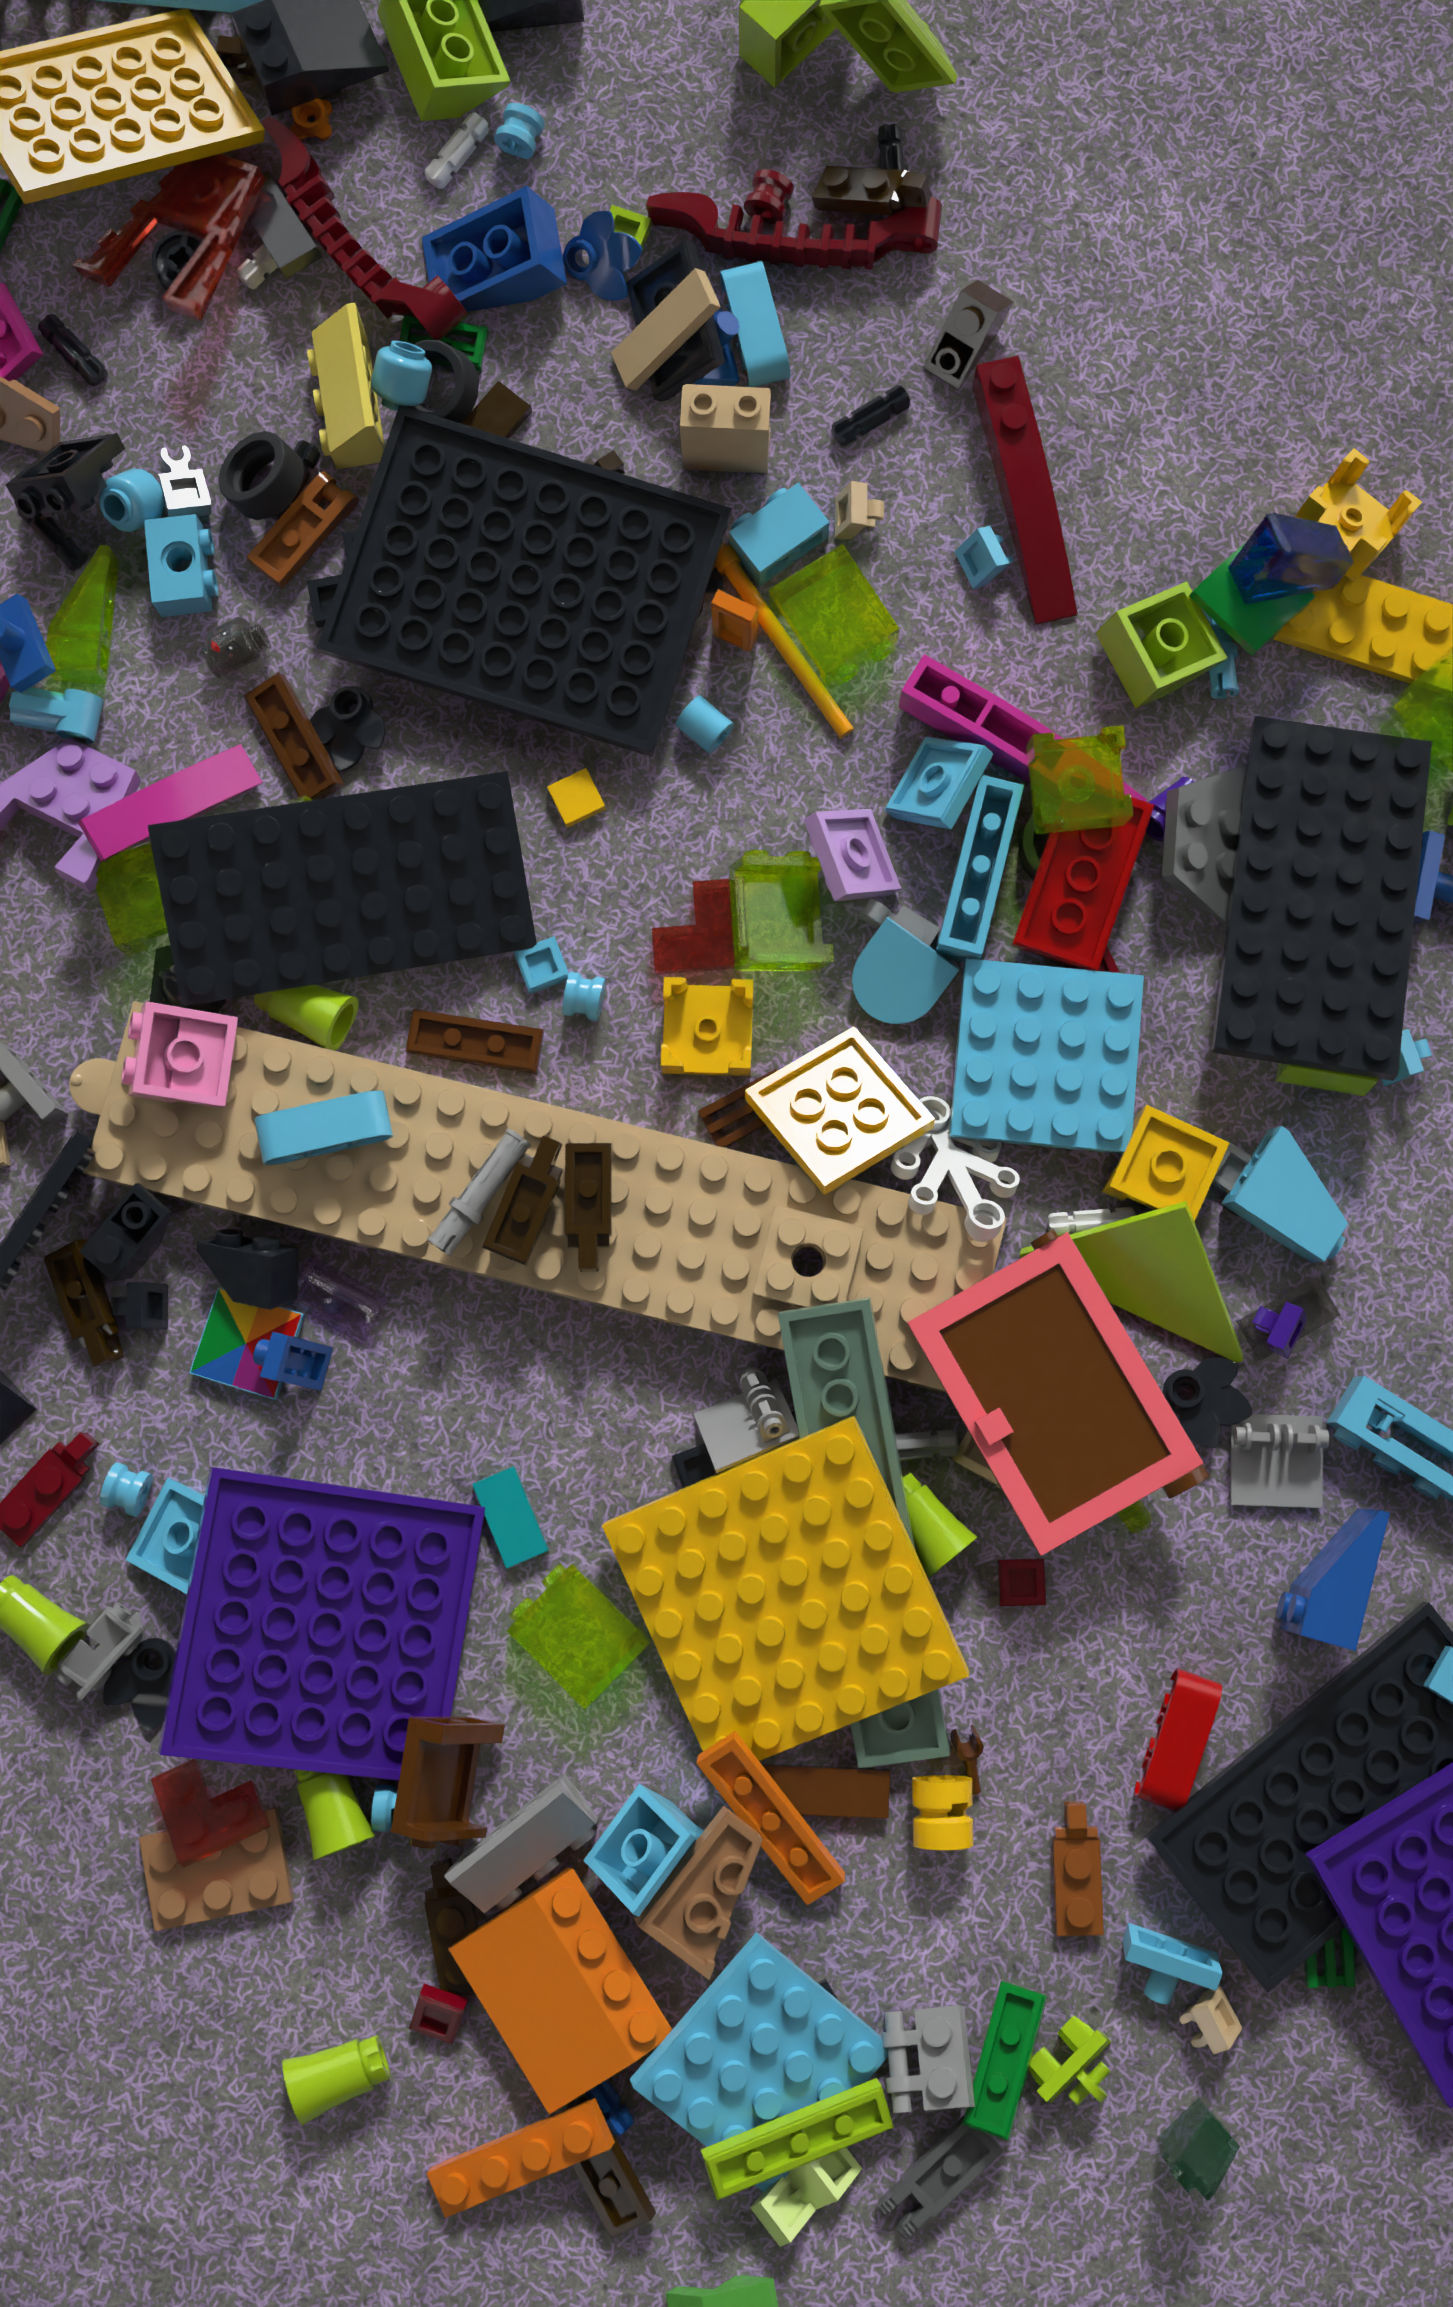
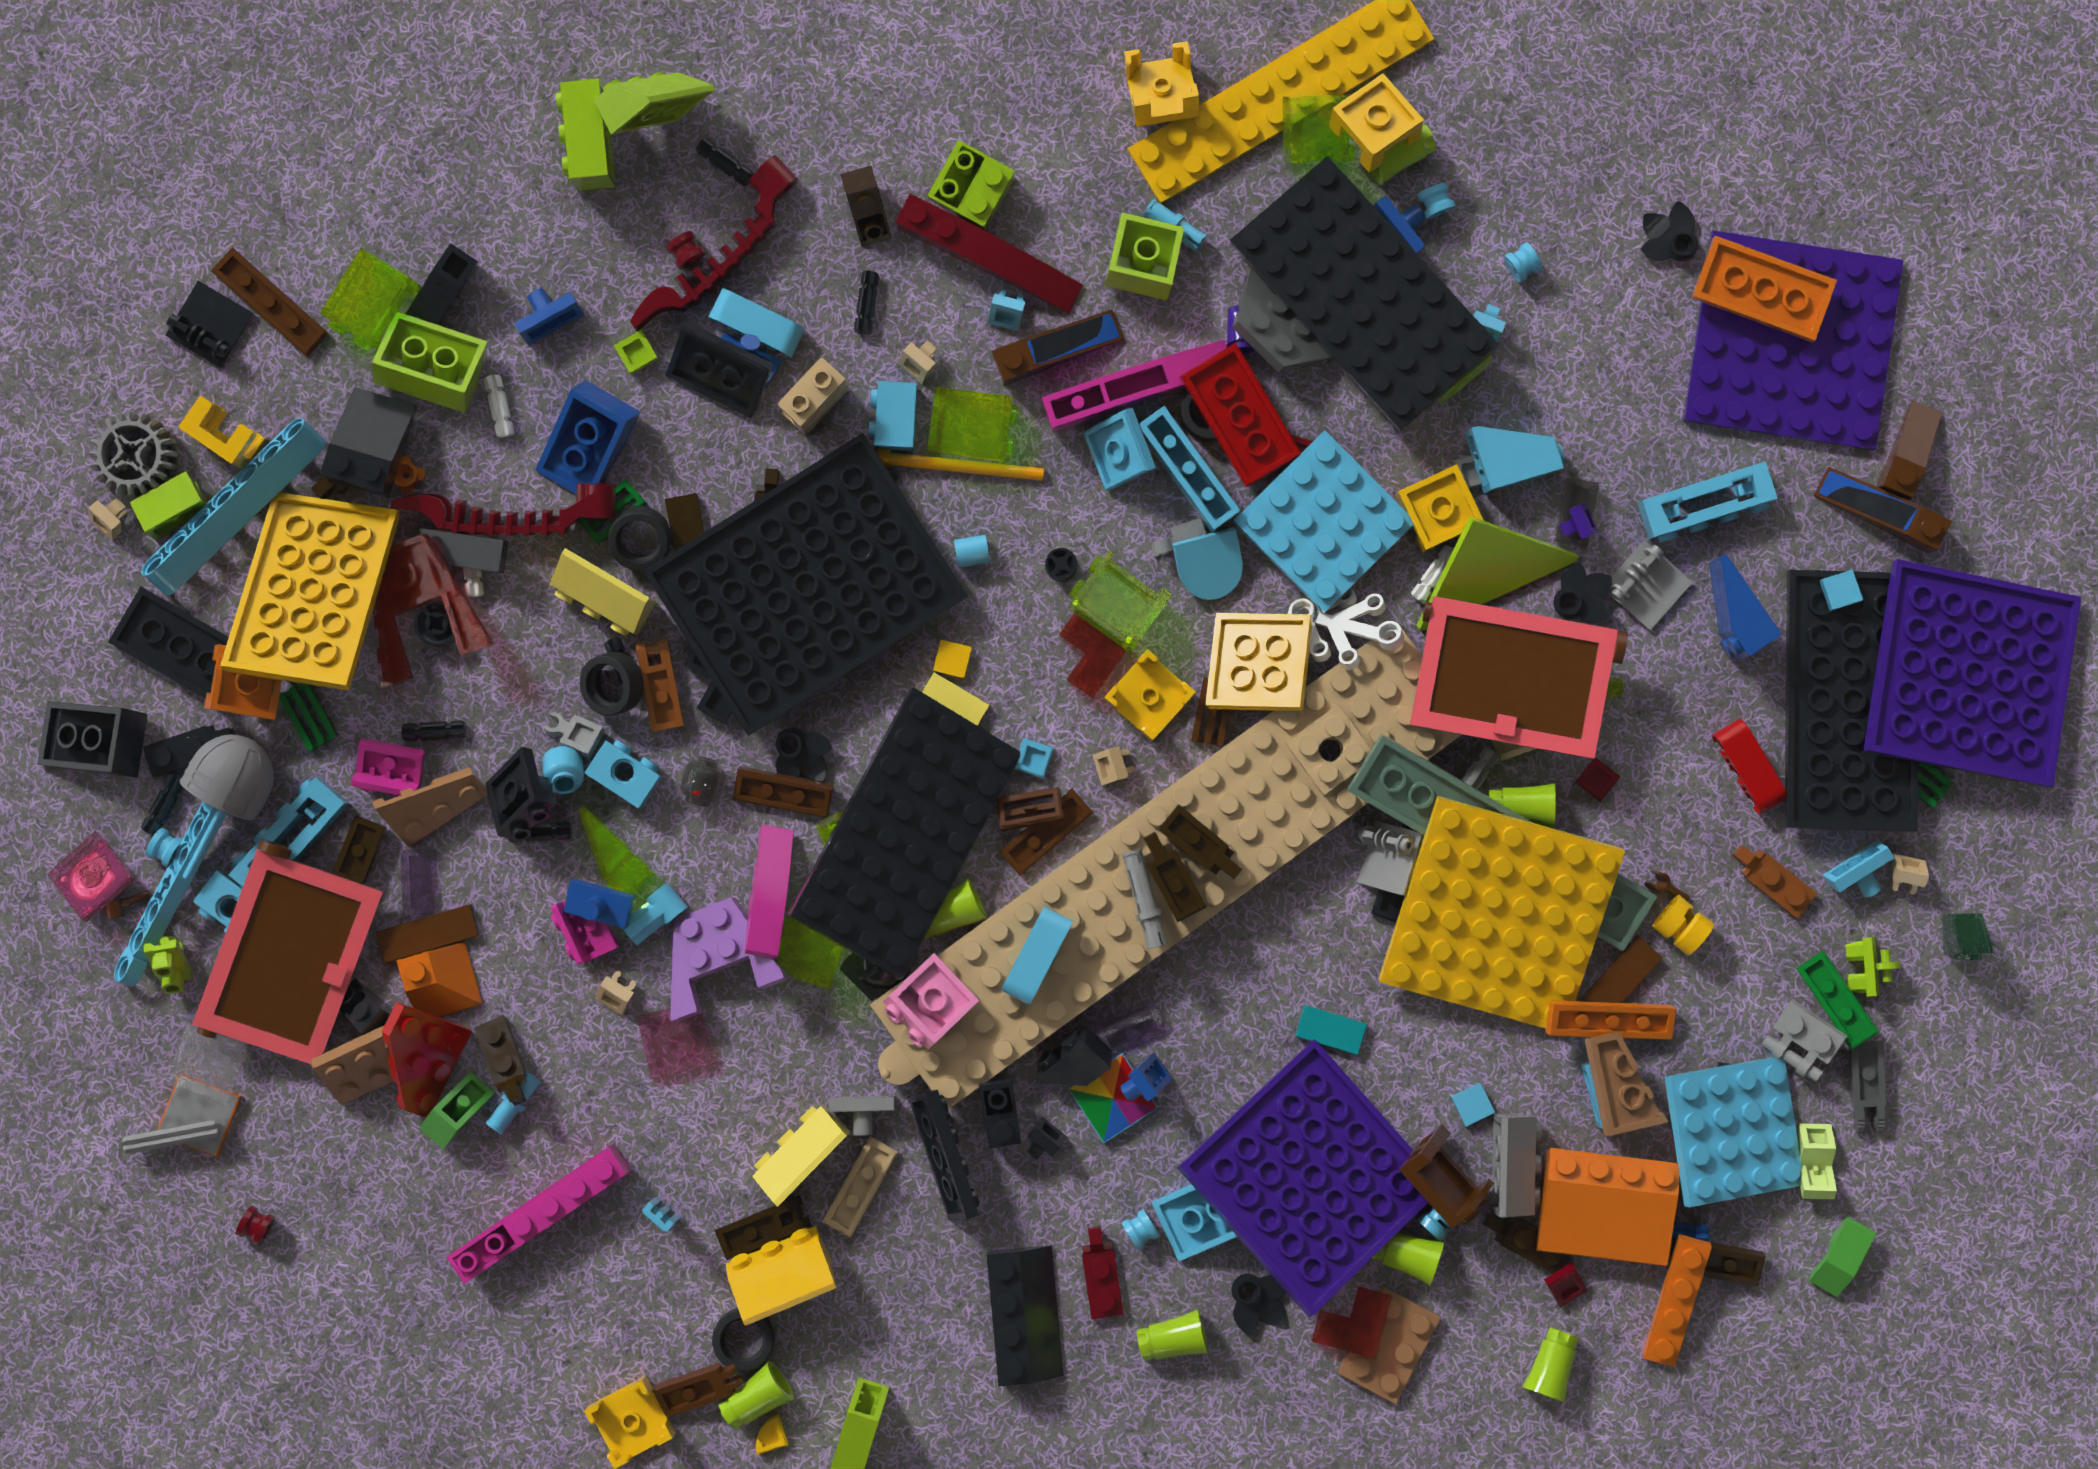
camera: 55 degrees left, 5 degrees up
(84, 1303) = (1014, 1169): dark brown hinge -> none
(114, 1637) = (1219, 1298): light grey hinge -> none
(401, 375) = (626, 556): medium azure head -> none
(490, 1029) = (1036, 820): none -> reddish brown tile
(519, 130) = (520, 360): medium azure wheel -> none
(536, 835) = (955, 698): none -> light yellow tile
(555, 1741) = (1472, 1104): none -> medium azure tile
(577, 1634) = (1425, 1044): clear neon green panel -> none
(583, 996) = (1073, 749): medium azure wheel -> none
(587, 120) = (547, 315): none -> blue tile
(600, 1048) = (1111, 765): none -> tan tile
(608, 254) = (643, 374): blue plate -> none
(641, 1847) = (1570, 1101): medium azure slope -> none
(665, 329) = (723, 380): tan tile -> none
(734, 621) = (930, 486): orange tile -> none
(768, 815) = (1064, 560): none -> black wheel
(797, 2138) = (1787, 1143): lime tile -> none
(852, 854) = (1120, 532): lavender plate -> none
(870, 190) = (732, 190): dark brown hinge -> none
(987, 634) = (1056, 346): none -> slope
(1078, 781) = (1190, 376): clear neon green panel -> none
(1082, 415) = (971, 185): none -> lime slope
(1247, 624) = (1161, 183): green slope -> none
(1289, 559) = (1163, 148): clear blue slope -> none

